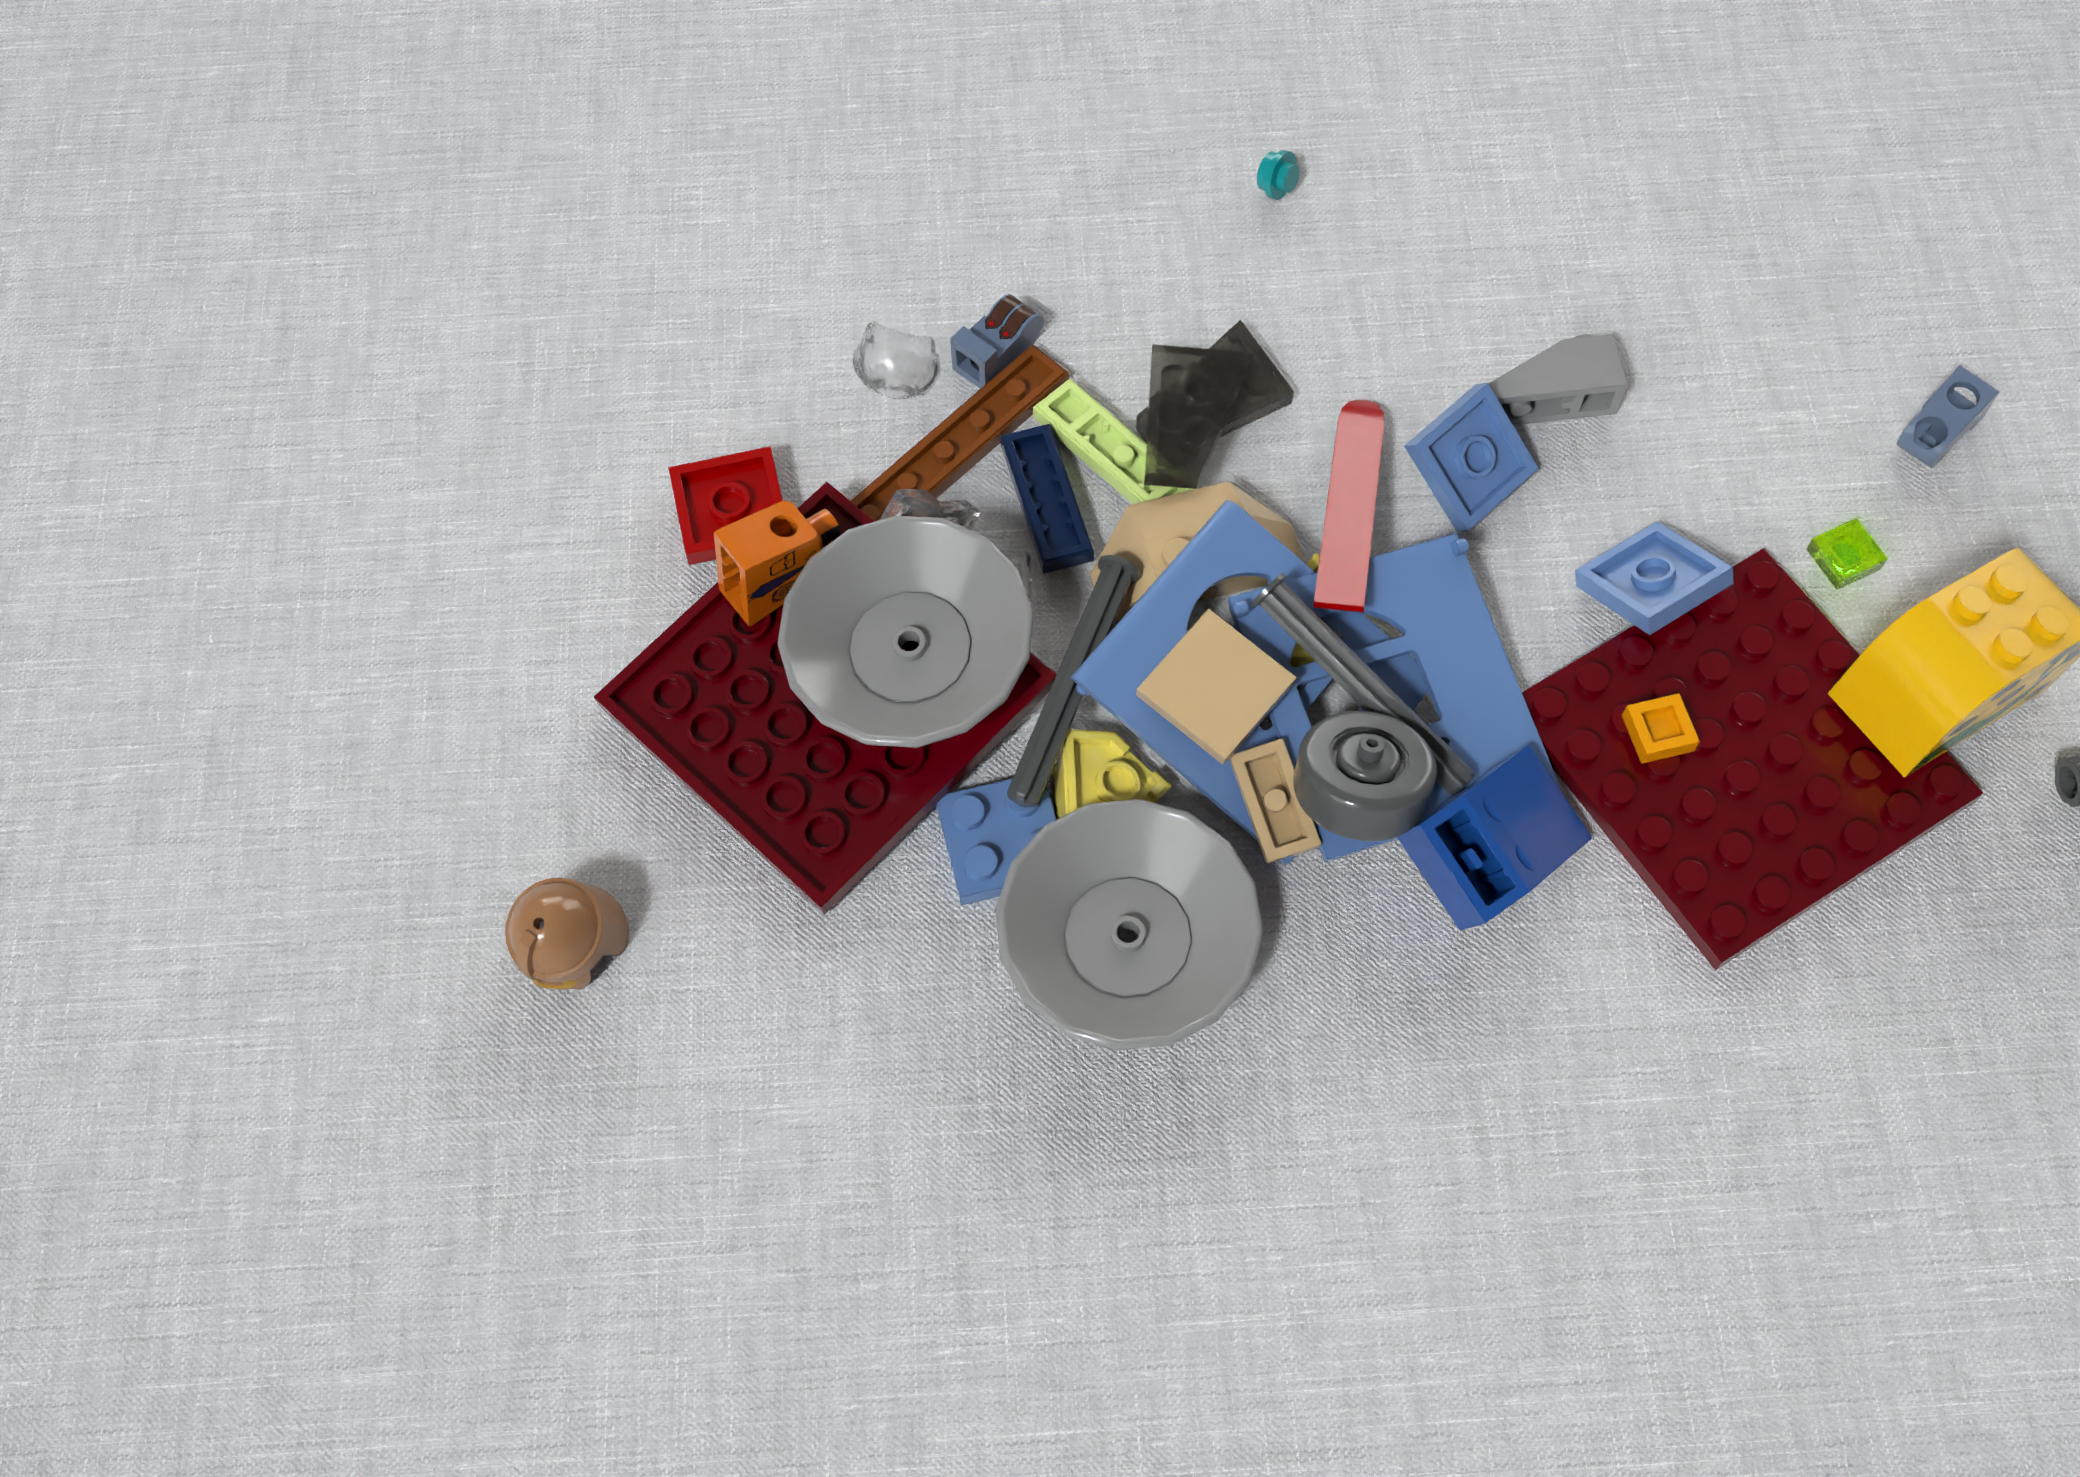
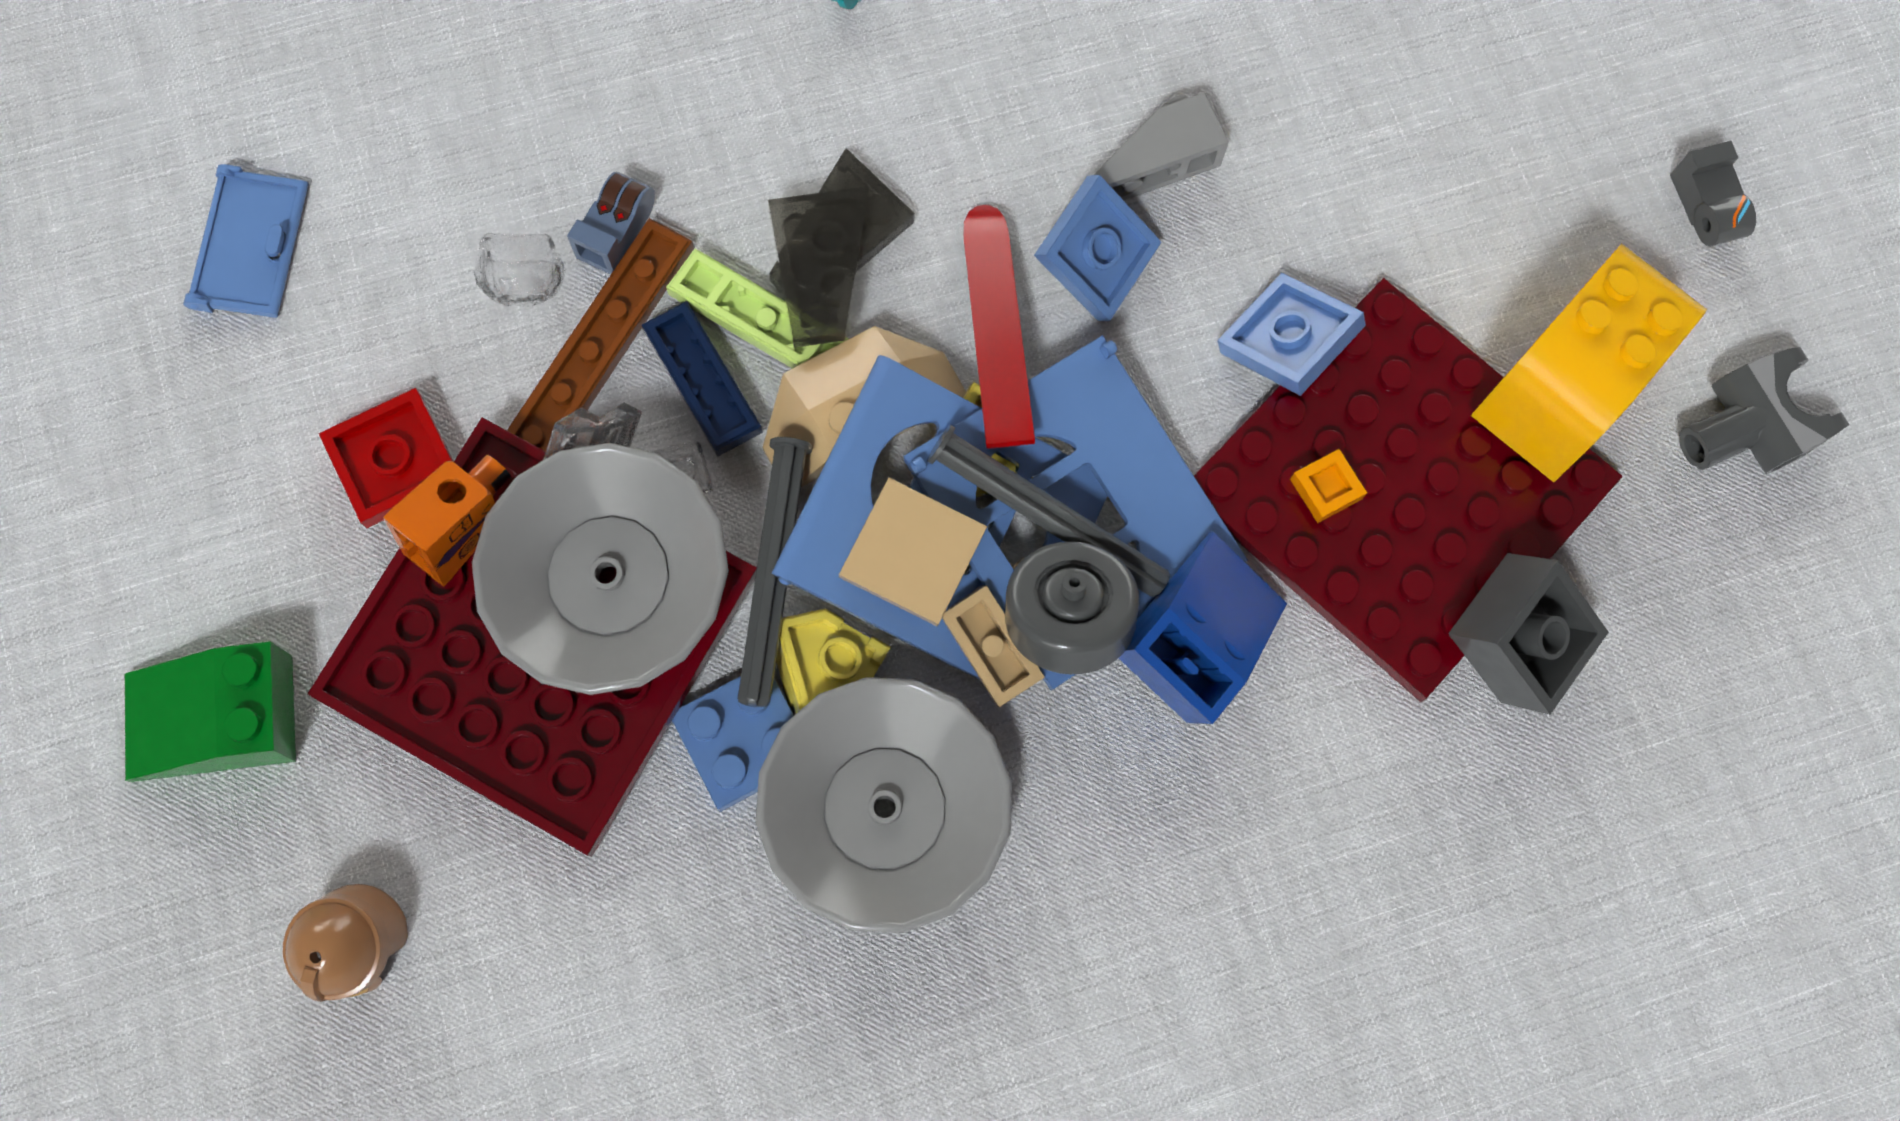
camera: 20 degrees left, 10 degrees up
(499, 694) = (210, 712): none -> green slope
(649, 277) = (246, 226): none -> medium blue door
(1845, 914) = (1529, 632): none -> dark grey brick
(1846, 554) = (1458, 266): clear neon green plate -> none
(1947, 417) = (1523, 108): sand blue leg -> none

